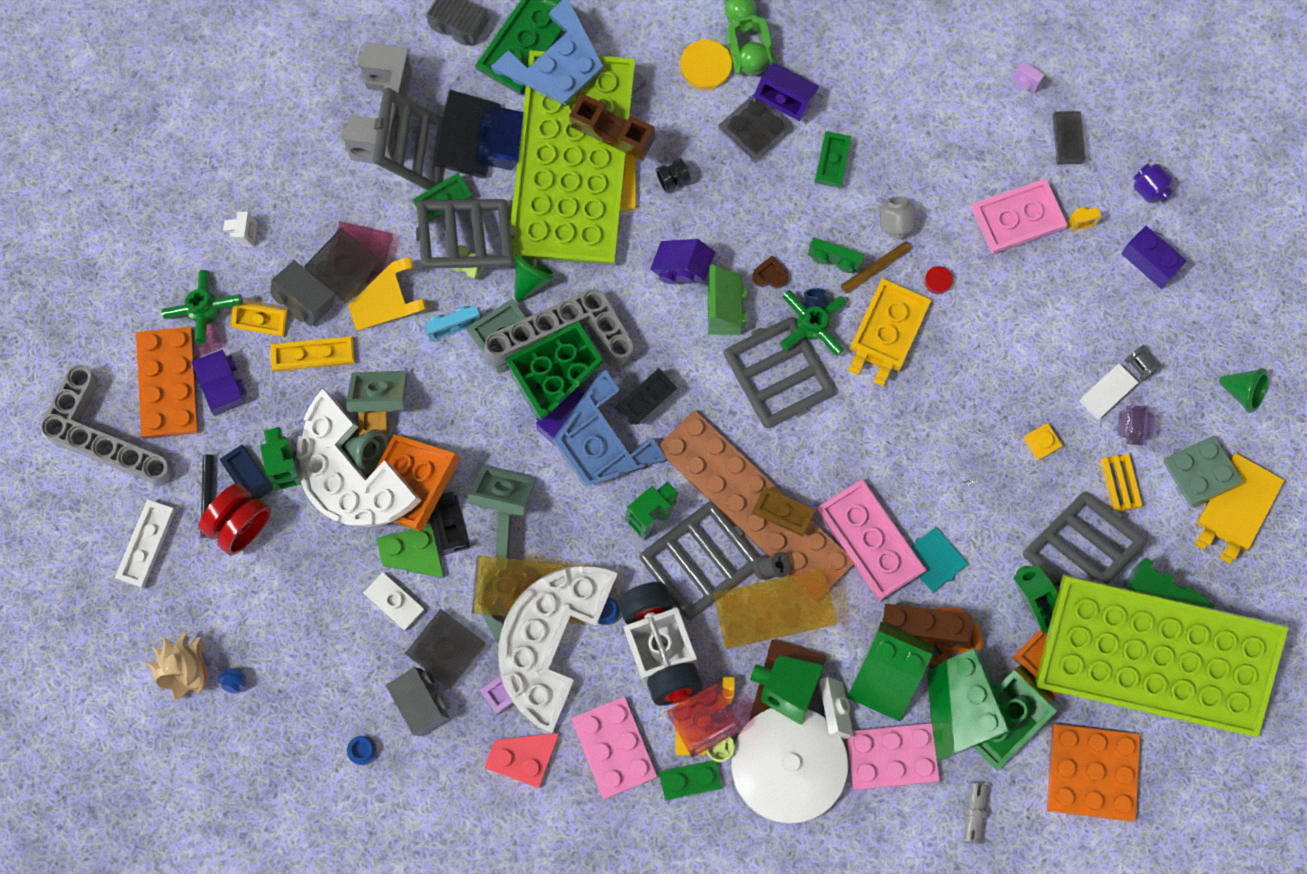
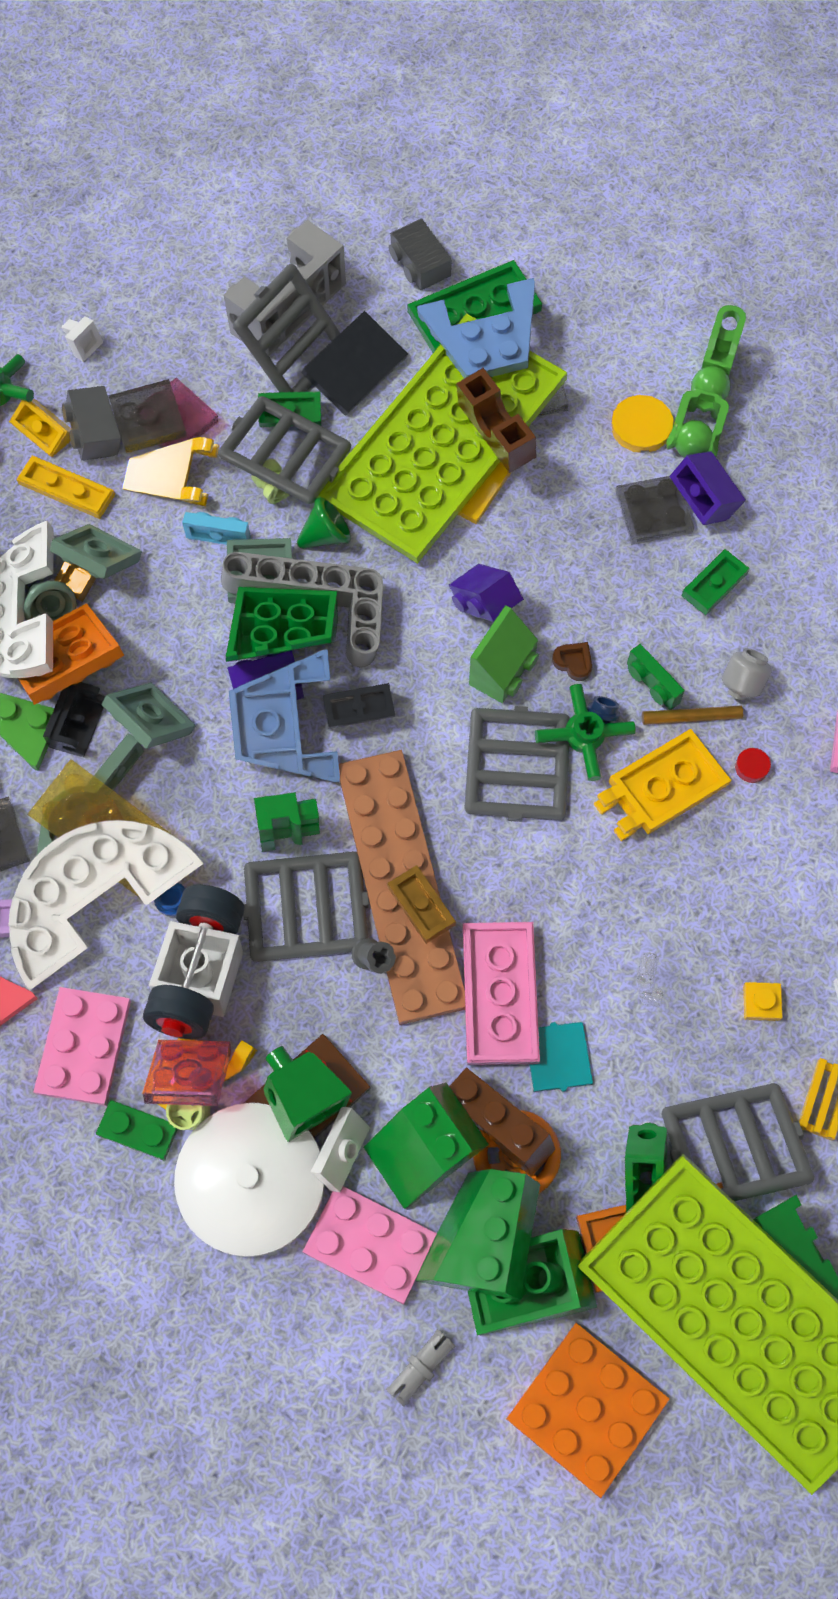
camera: 35 degrees right, 5 degrees down
(501, 138) = (384, 381): clear blue brick -> none
(673, 175) = (535, 508): black wheel -> none
(775, 608) = (346, 1001): clear yellow plate -> none

